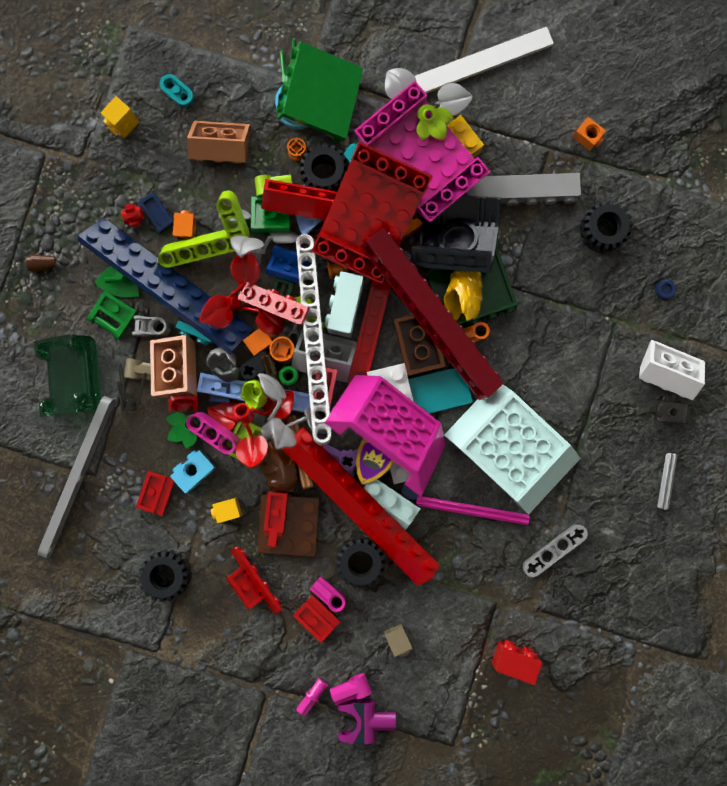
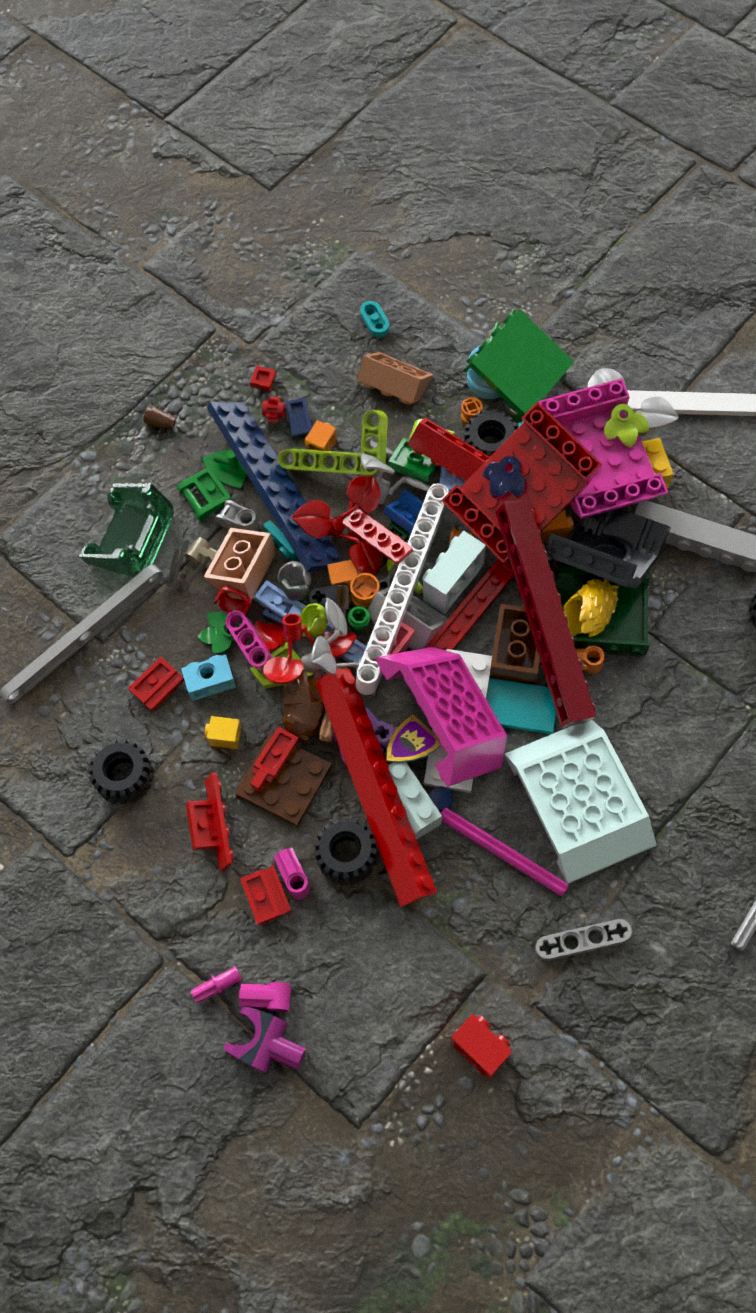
camera: 25 degrees right, 20 degrees down
(109, 188) = (263, 378): none -> red plate
(119, 117) = (306, 318): yellow brick -> none
(353, 215) = (503, 480): none -> clear blue plate
(398, 641) = (348, 962): dark tan brick -> none

